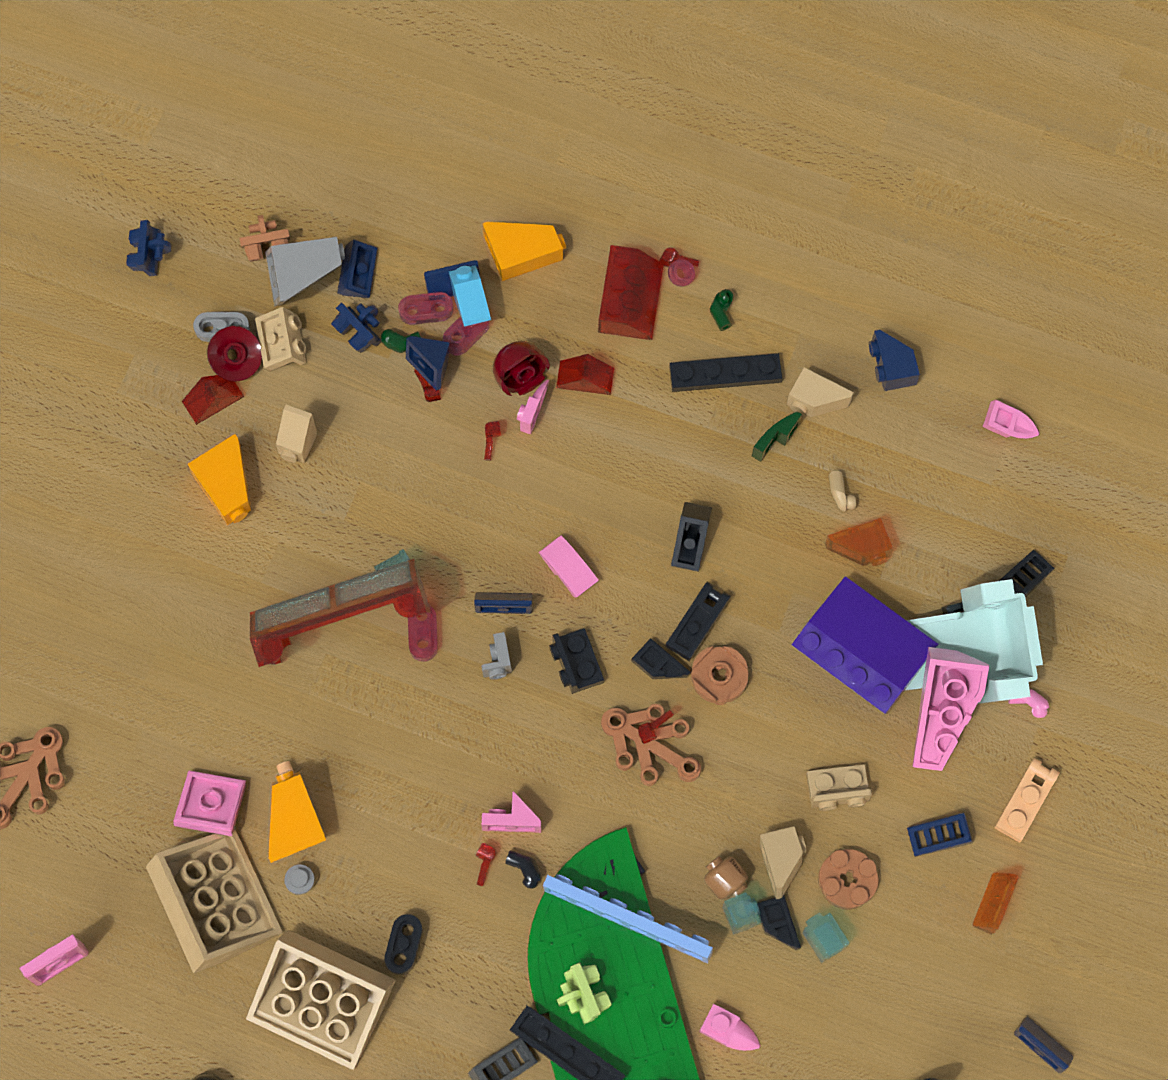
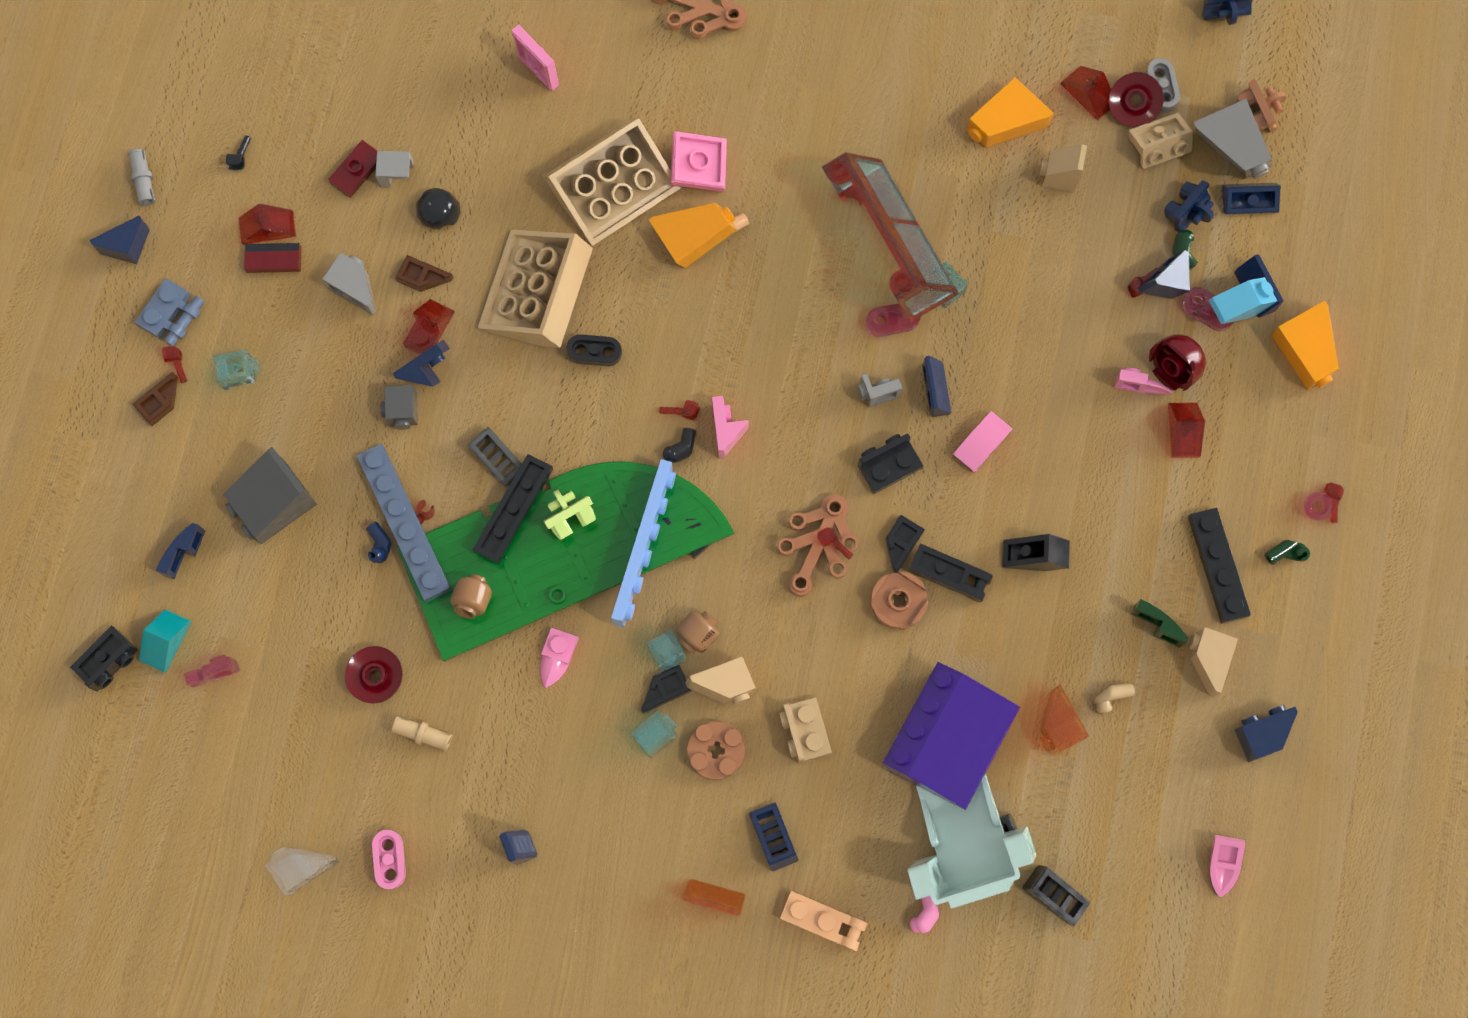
camera: 85 degrees right, 5 degrees up
(299, 879) = (640, 251): light grey plate -> none
(425, 306) = (1224, 267): clear pink plate -> none
(492, 429) = (1108, 348): clear red hand -> none
(630, 293) = (1283, 457): clear red slope -> none
(949, 695) = (908, 824): bright pink wedge -> none
(1043, 1045) = (581, 960): dark blue slope -> none

